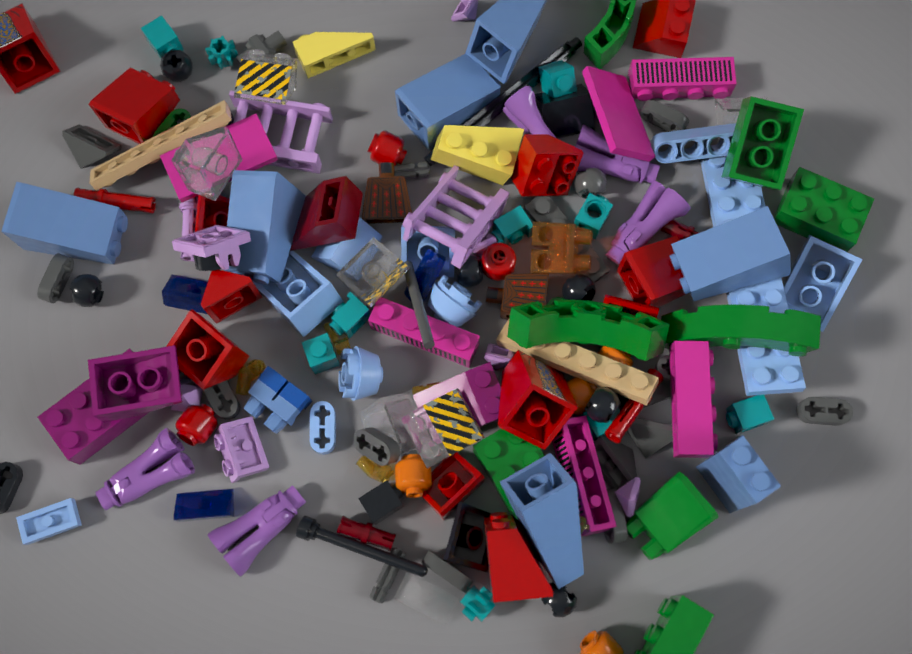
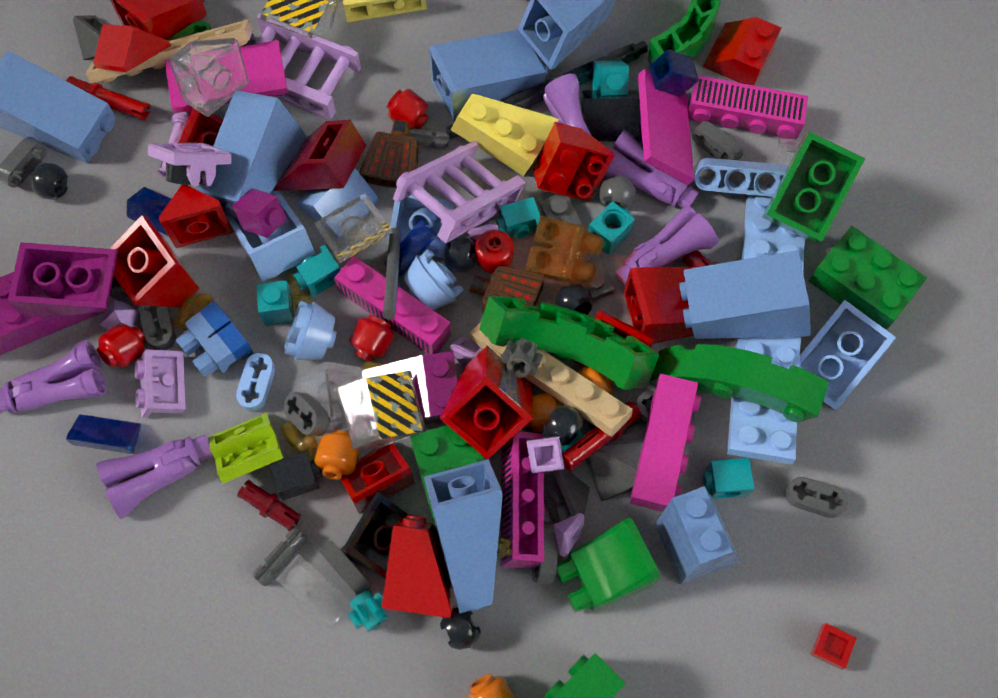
camera: 10 degrees right, 5 degrees down
(121, 153) = (126, 47): none -> red slope
(286, 277) = (259, 212): none -> magenta brick
(310, 529) = (209, 485): black piece -> none
(331, 489) = (245, 447): none -> lime slope
(413, 364) = (371, 338): none -> red head
(552, 355) = (521, 358): none -> dark grey gear
(594, 434) = (545, 454): none -> lavender slope
(613, 63) = (673, 73): none -> clear blue brick
(870, 535) = (833, 646): none -> red plate

